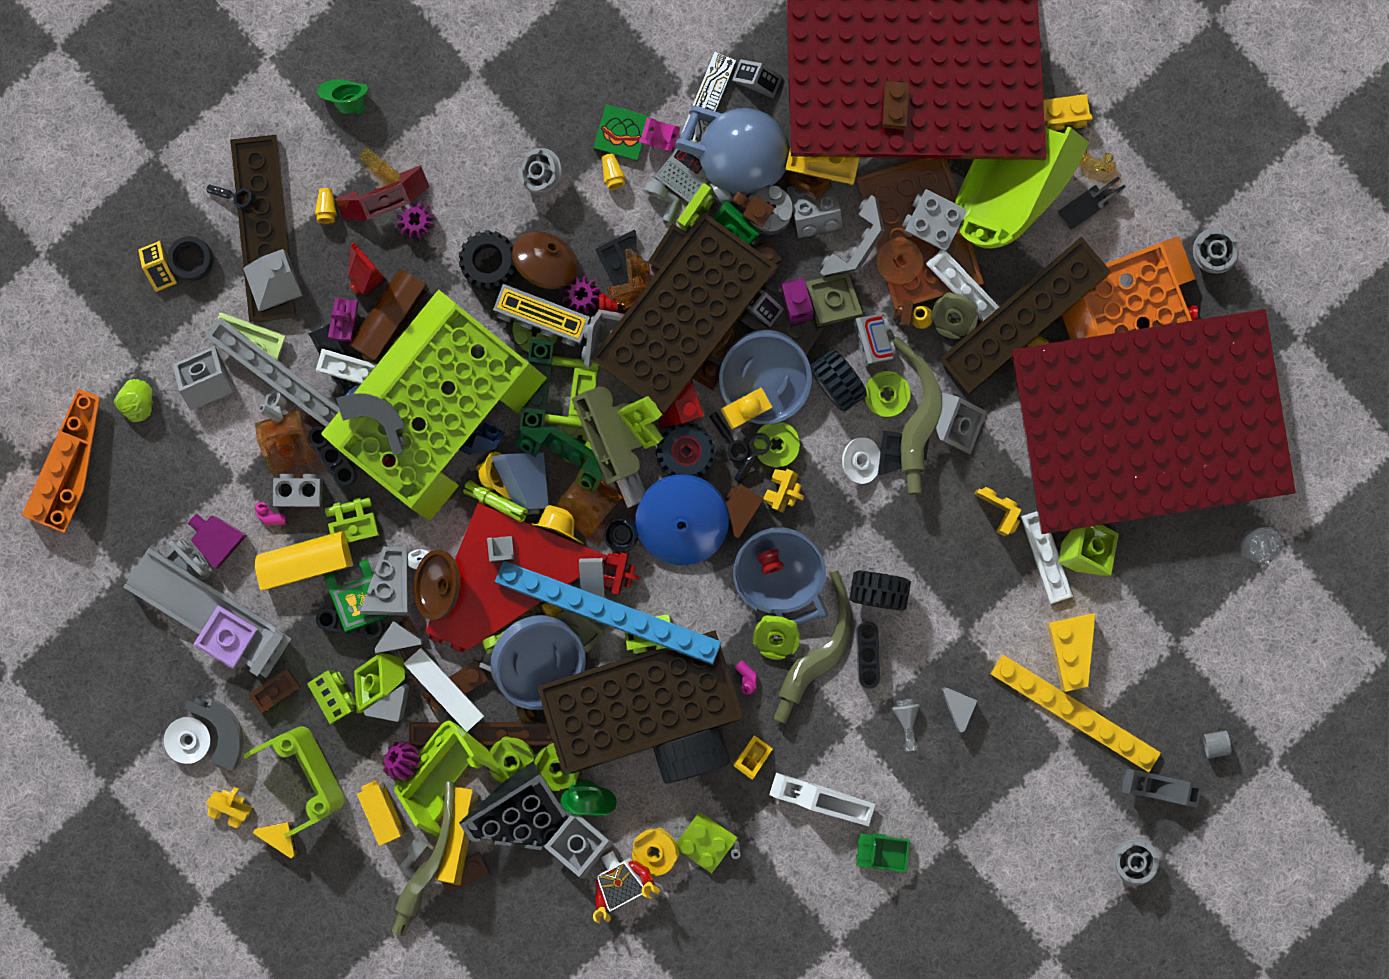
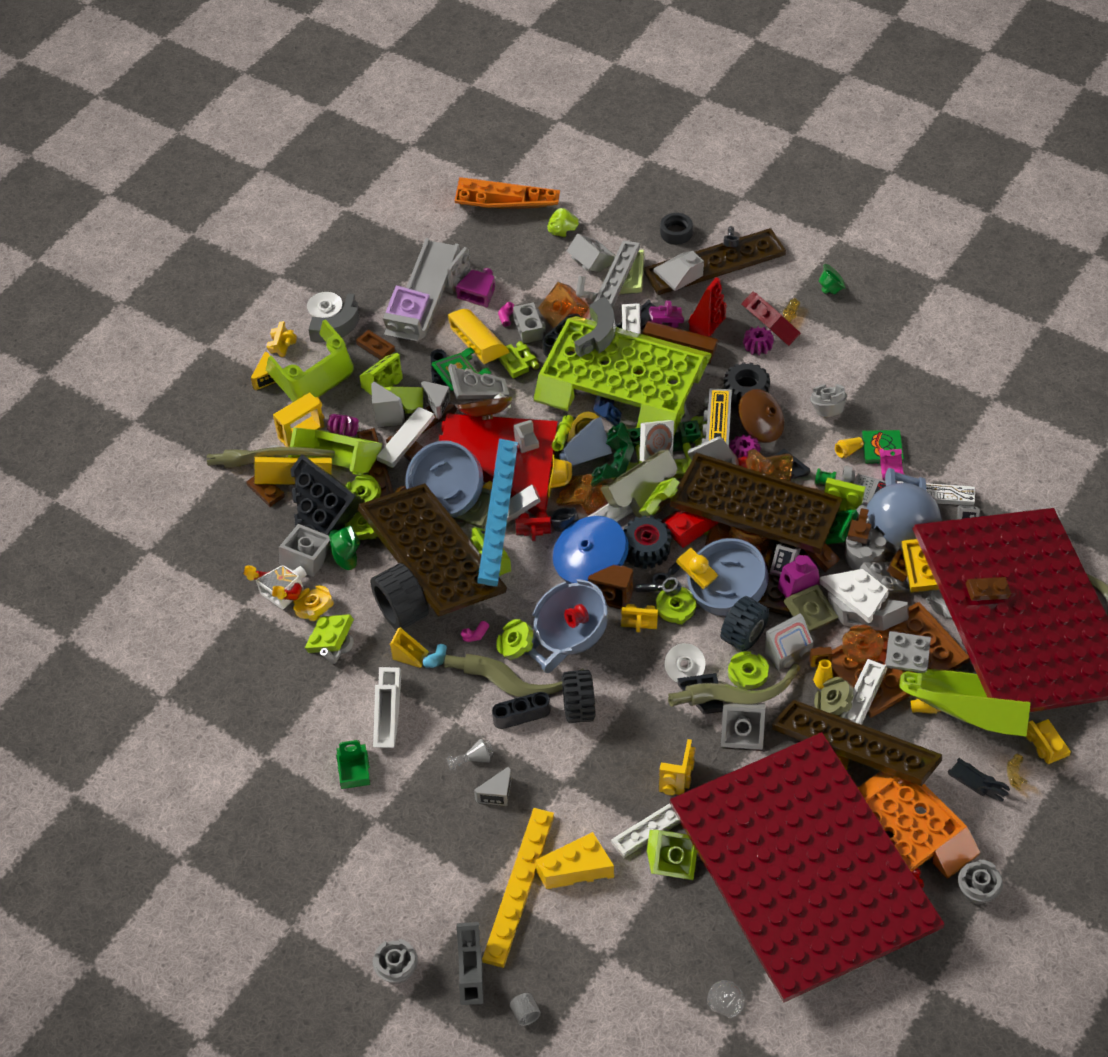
camera: 75 degrees right, 35 degrees down
(156, 266) = (658, 211): slope -> none
(325, 207) = (743, 290): yellow cone -> none
(553, 397) = (656, 437): none -> tile
(651, 216) = (821, 476): none -> green bush
(769, 728) = (437, 658): none -> medium azure arm
(837, 242) = (857, 591): none -> white wing

